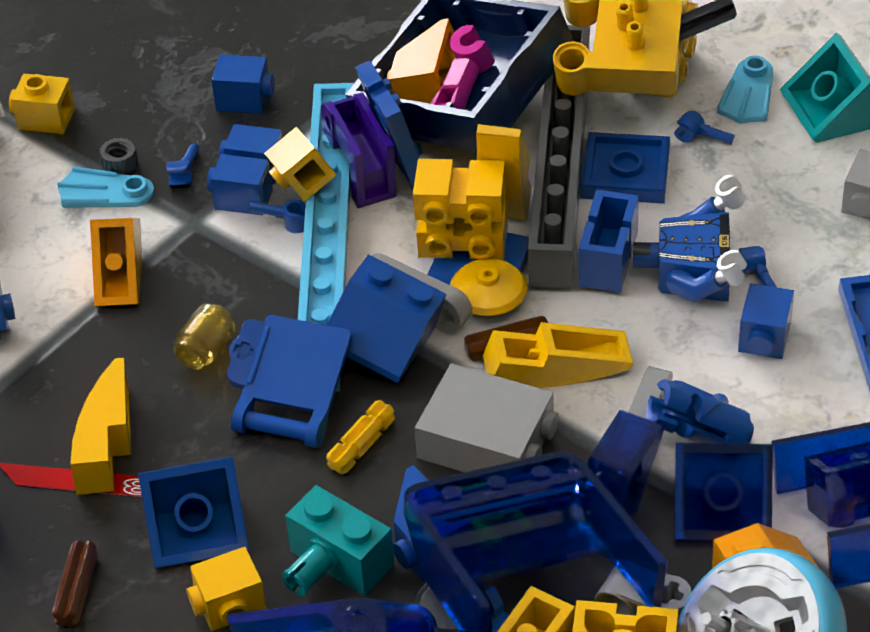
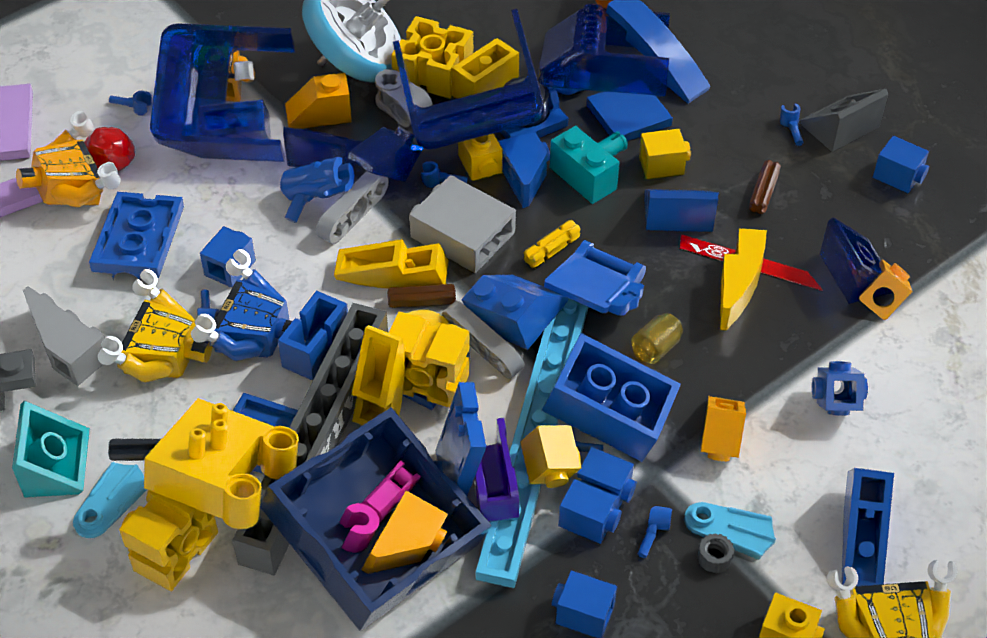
camera: 170 degrees left, 5 degrees up
(245, 230) = (611, 397): none -> blue brick
(788, 209) = (158, 338): none -> yellow torso

